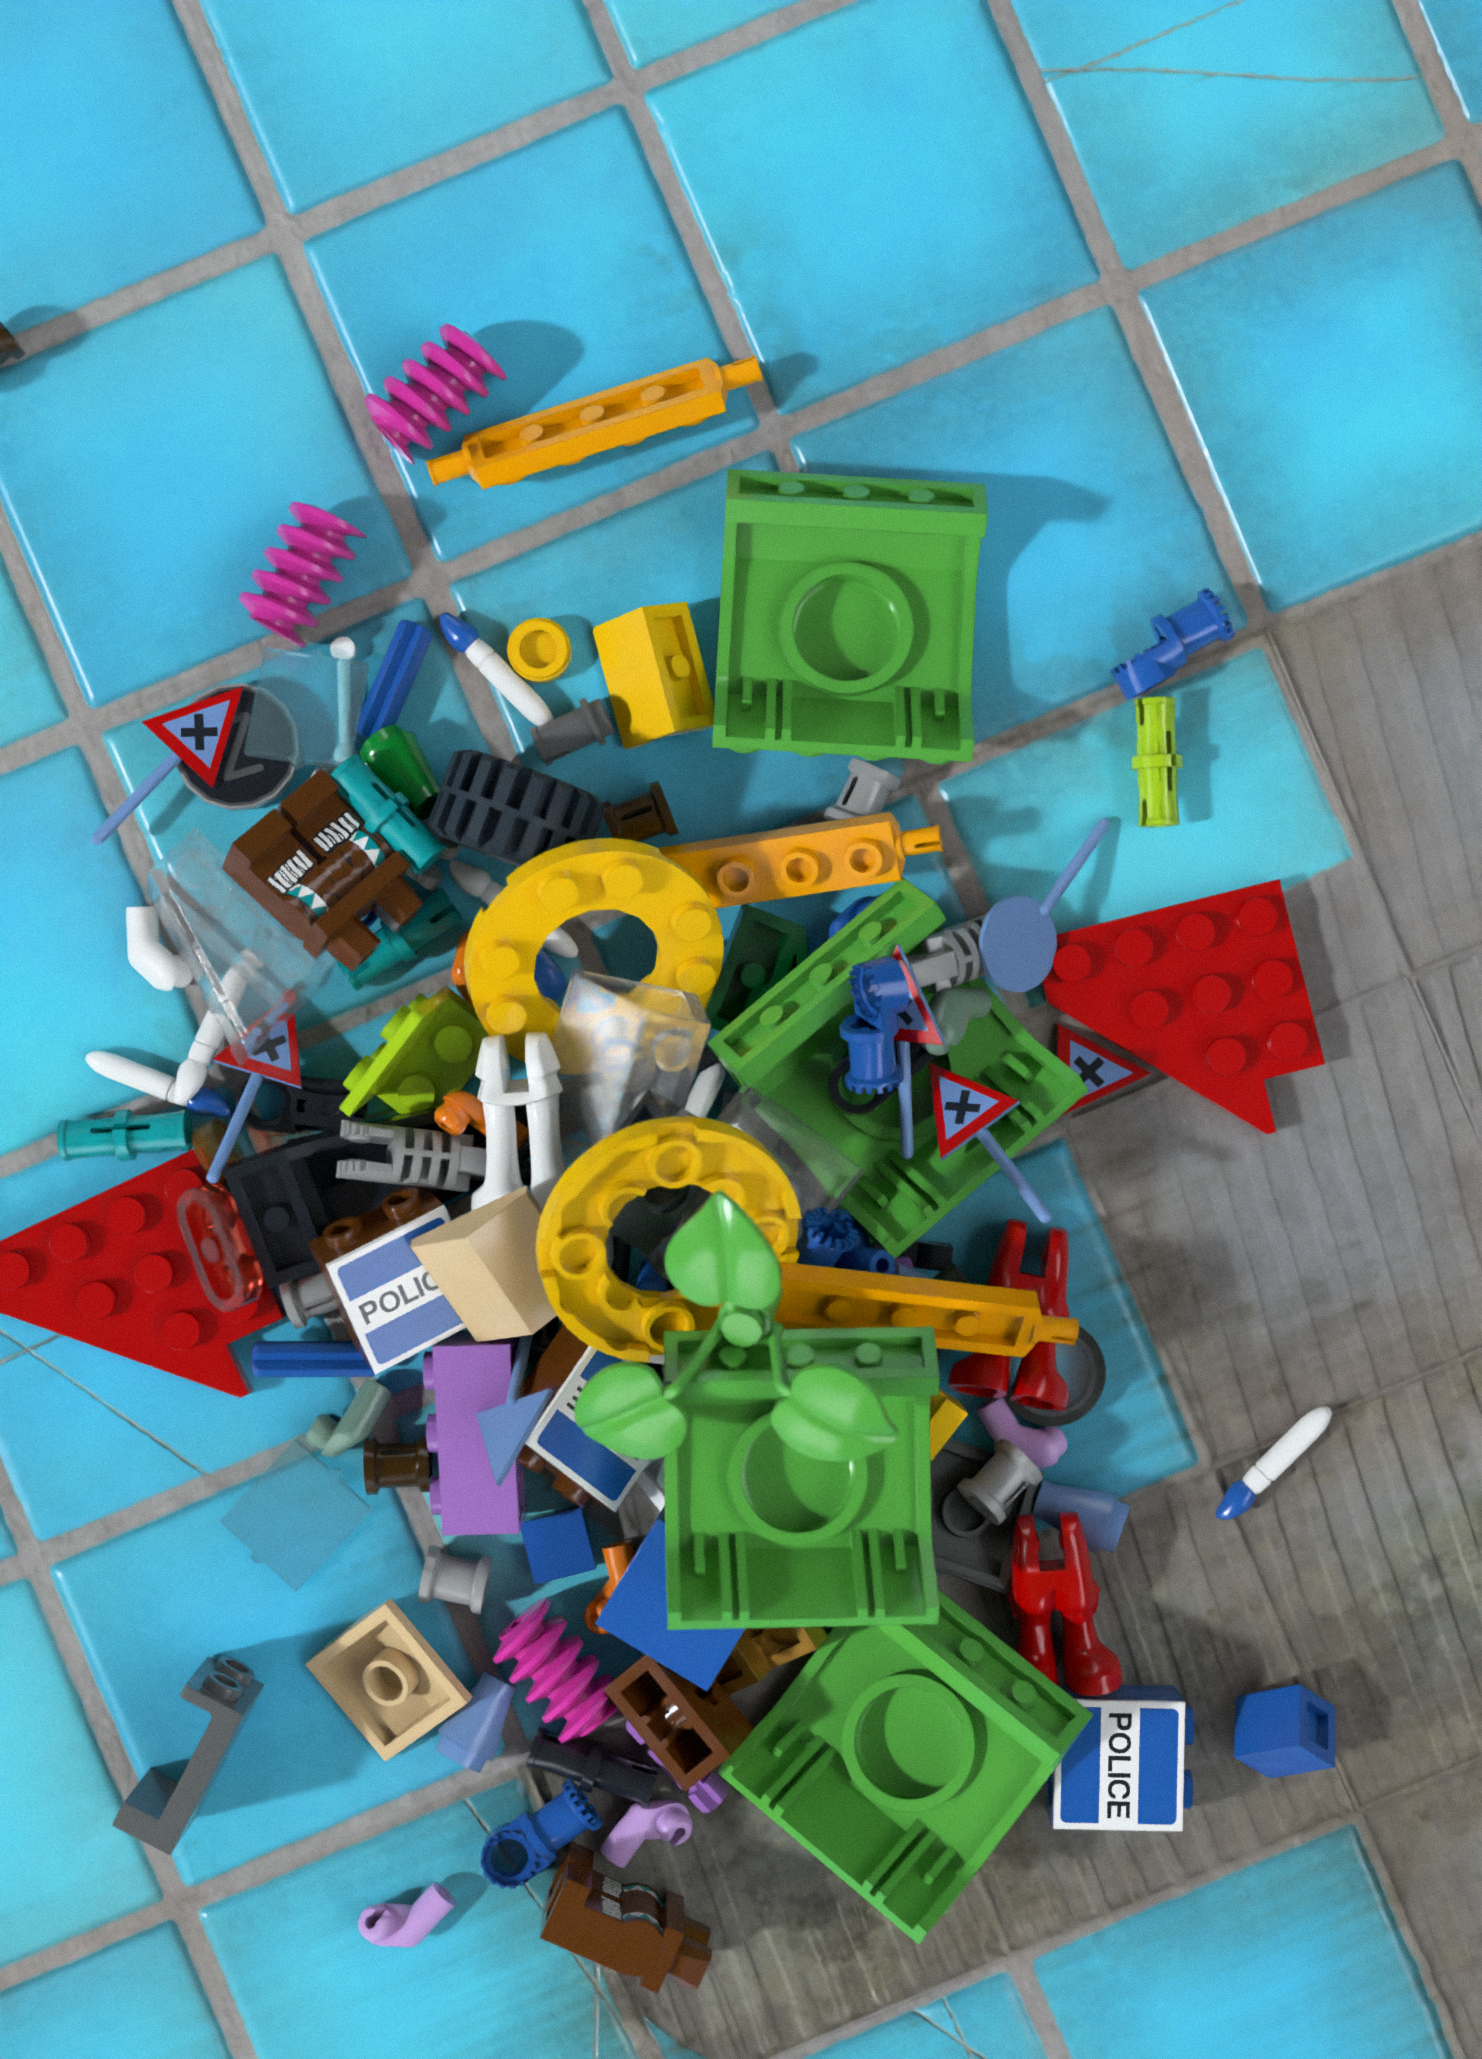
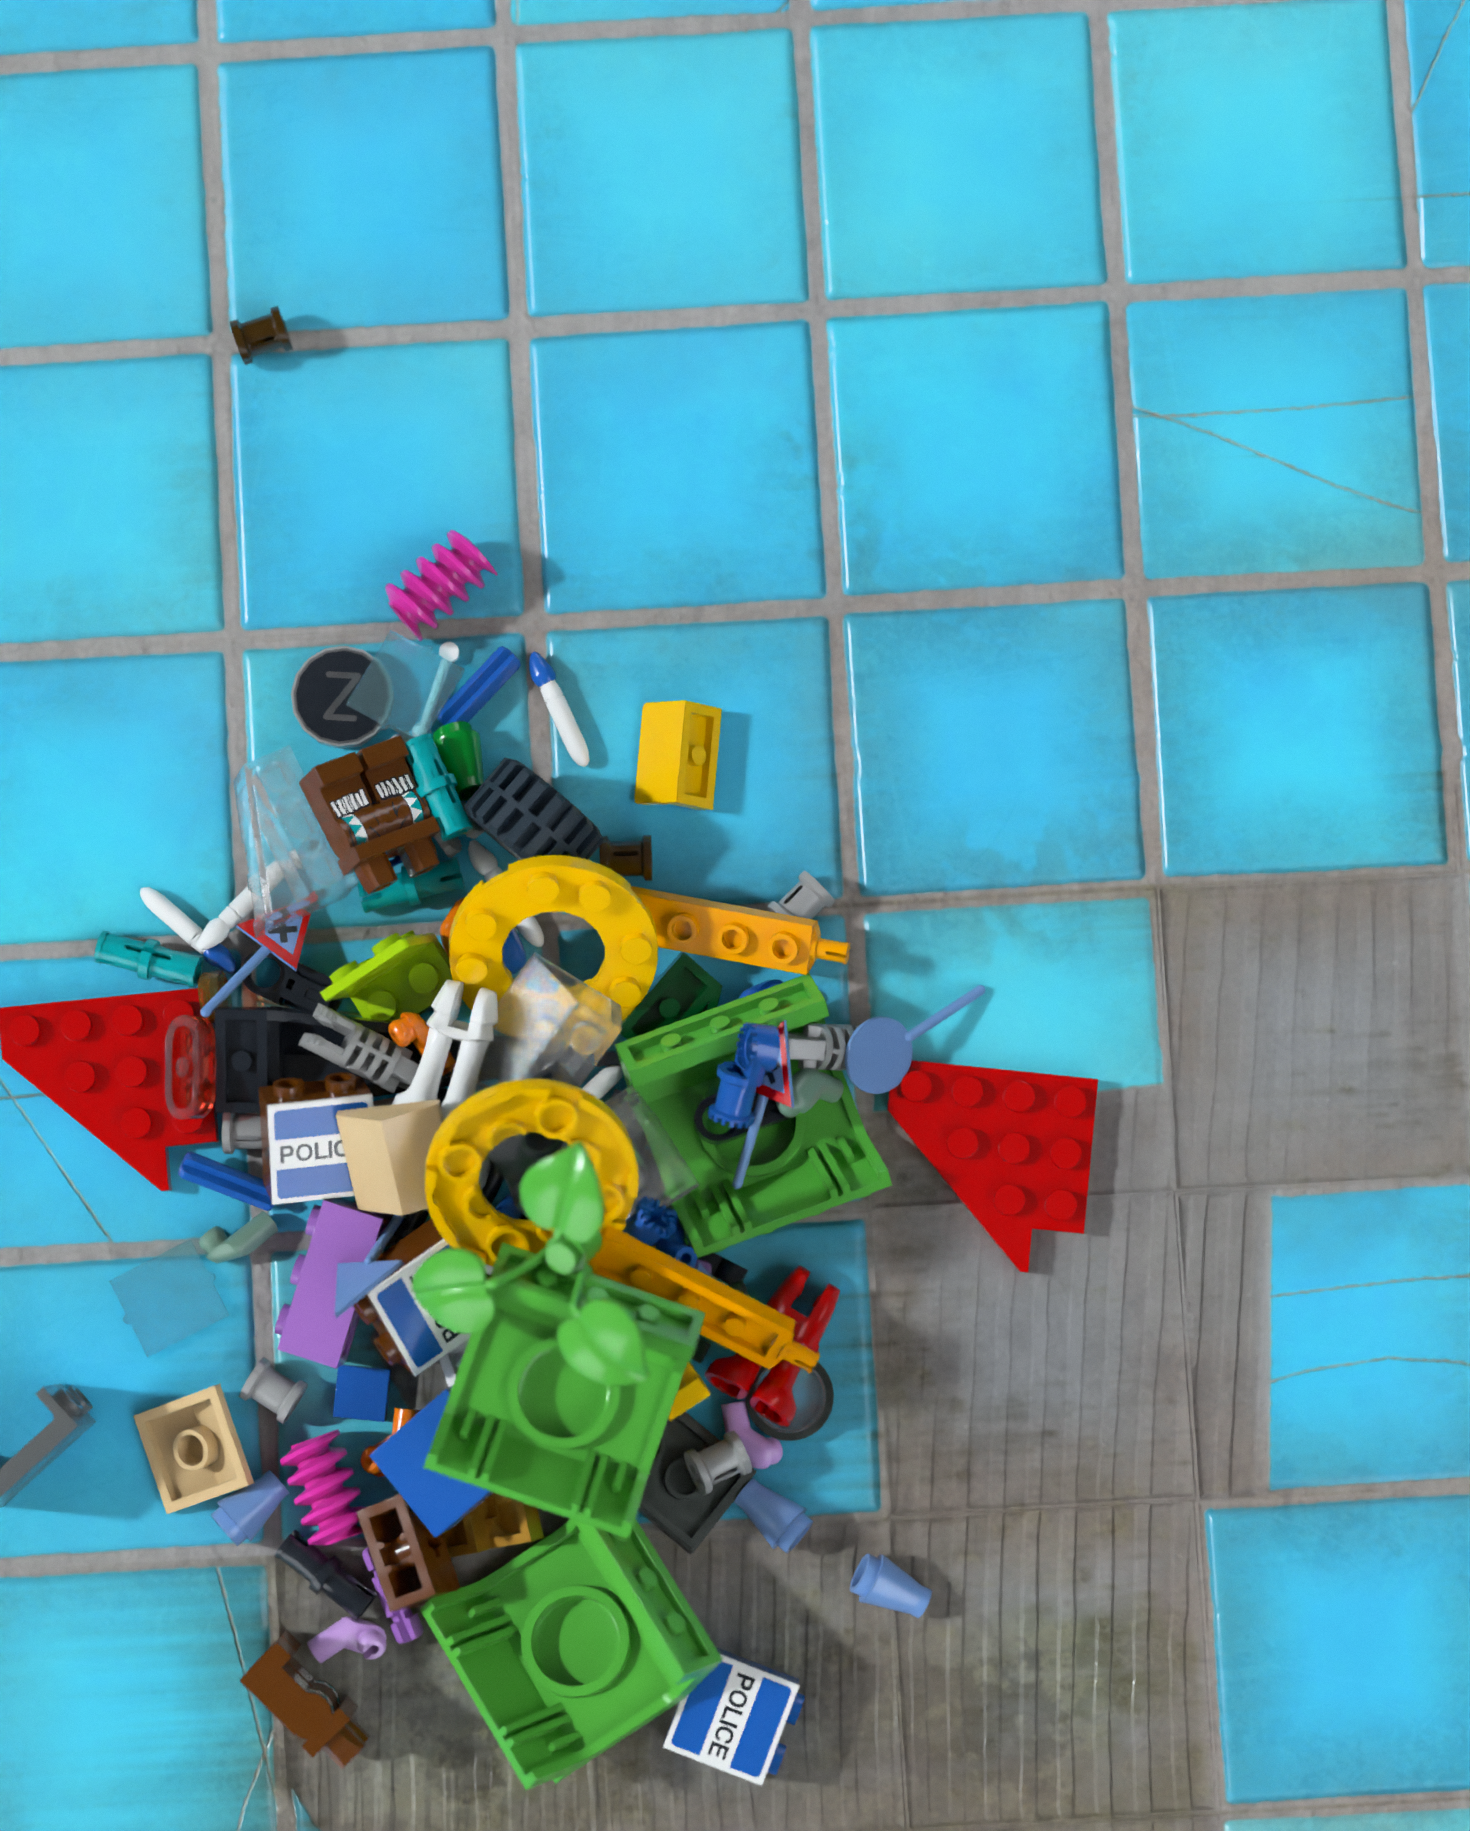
camera: 20 degrees right, 5 degrees down
(149, 955) = (217, 829): white arm -> none
(195, 736) = (313, 677): piece -> none
(397, 1465) = (261, 1285): dark brown bush -> none
(406, 1923) = (135, 1646): lavender arm -> none
(432, 390) = (586, 484): dark pink piece -> none
(539, 650) = (597, 705): yellow tile -> none
(541, 1834) = (267, 1613): blue connector -> none
(572, 731) = (600, 775): dark grey pin -> none
(595, 423) = (700, 551): light orange plate -> none
(848, 616) = (838, 762): bright green panel -> none
(965, 1112) = (790, 1167): piece -> none
(1069, 1588) = (743, 1568): red piece -> none
(1098, 1068) = (906, 1174): piece -> none
(1157, 762) = (1036, 957): lime pin -> none
(1176, 638) = (1086, 868): blue connector -> none
(1242, 1548) = (888, 1586): none -> medium blue cone
(1273, 1463) = (936, 1530): white piece -> none
(1284, 1731) = (870, 1742): blue panel -> none

